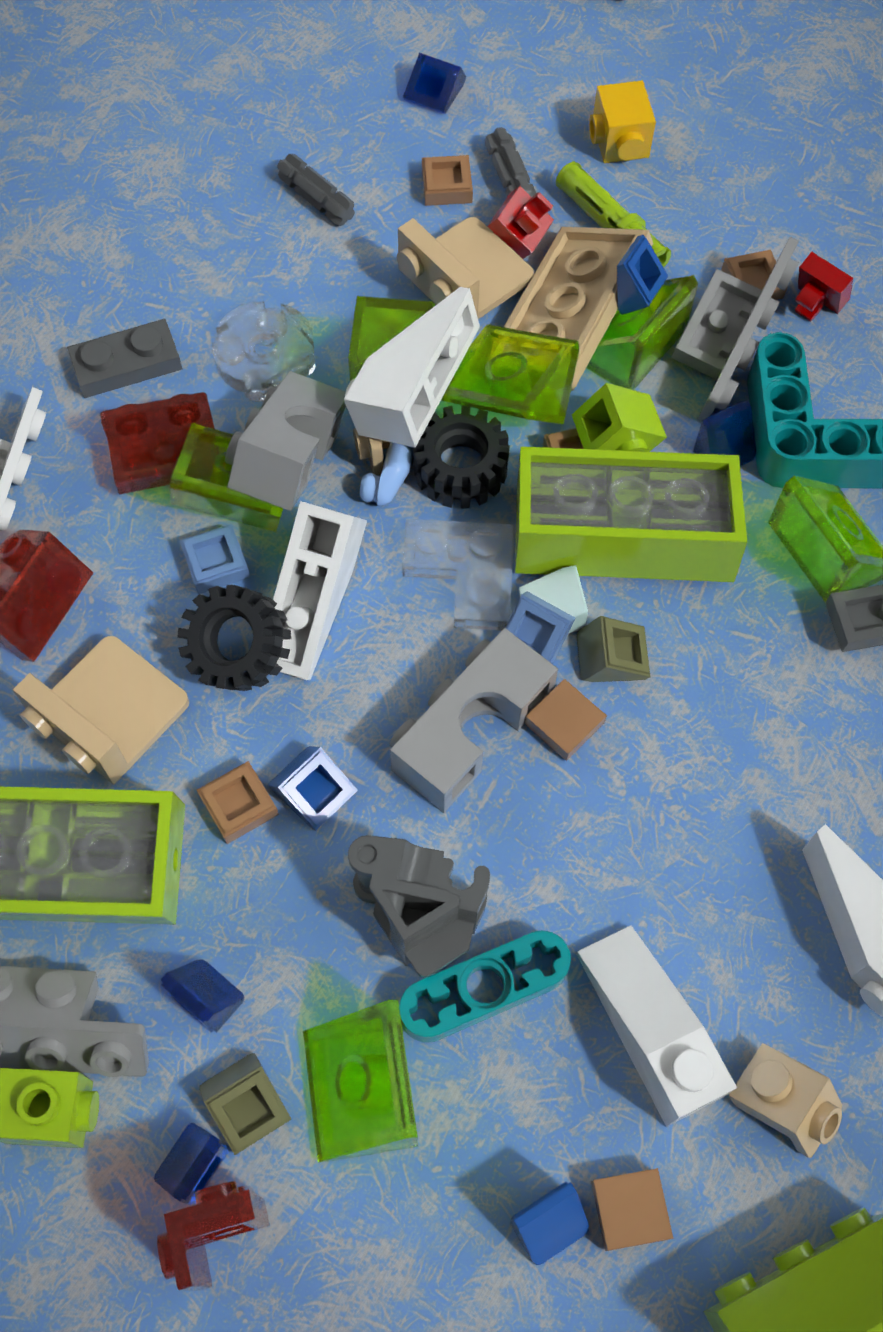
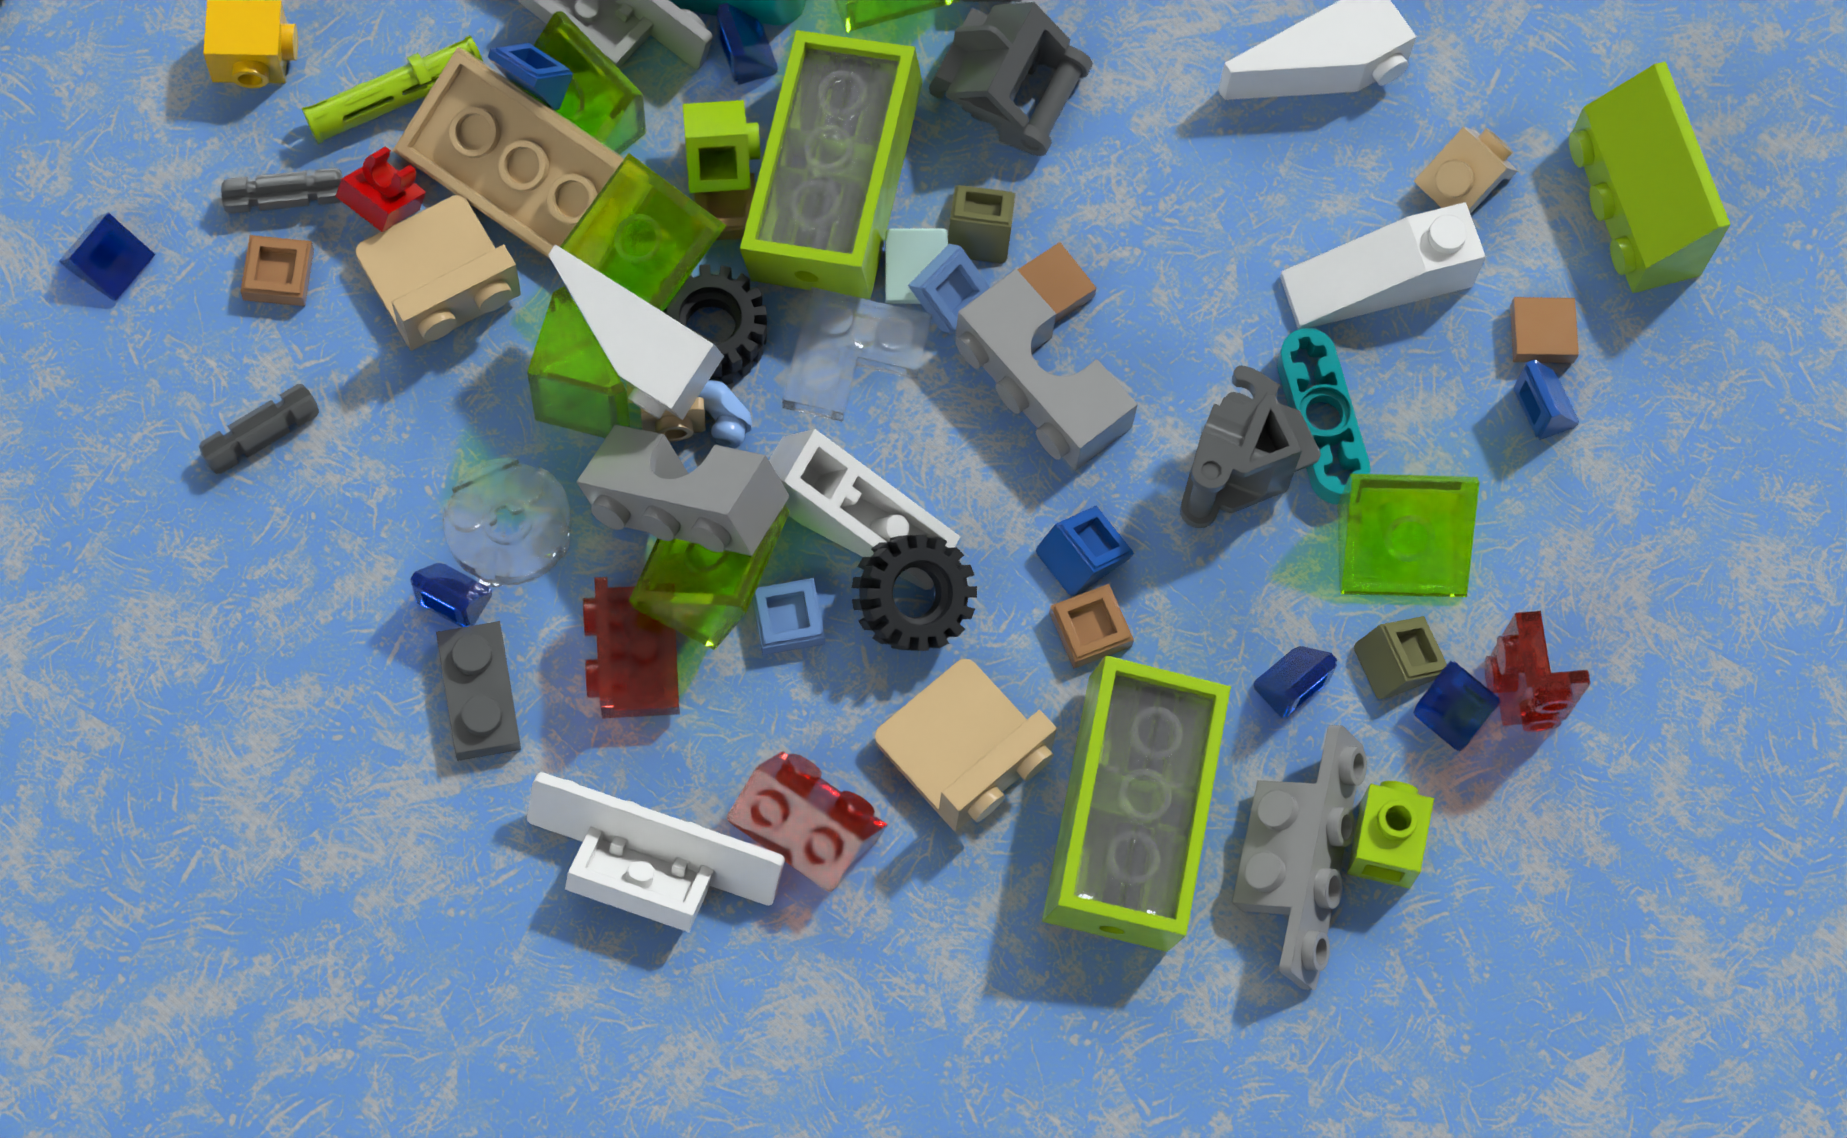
camera: 85 degrees left, 5 degrees up
(196, 320) = (450, 594): none -> clear blue slope
(767, 625) = (991, 62): none -> dark grey piece

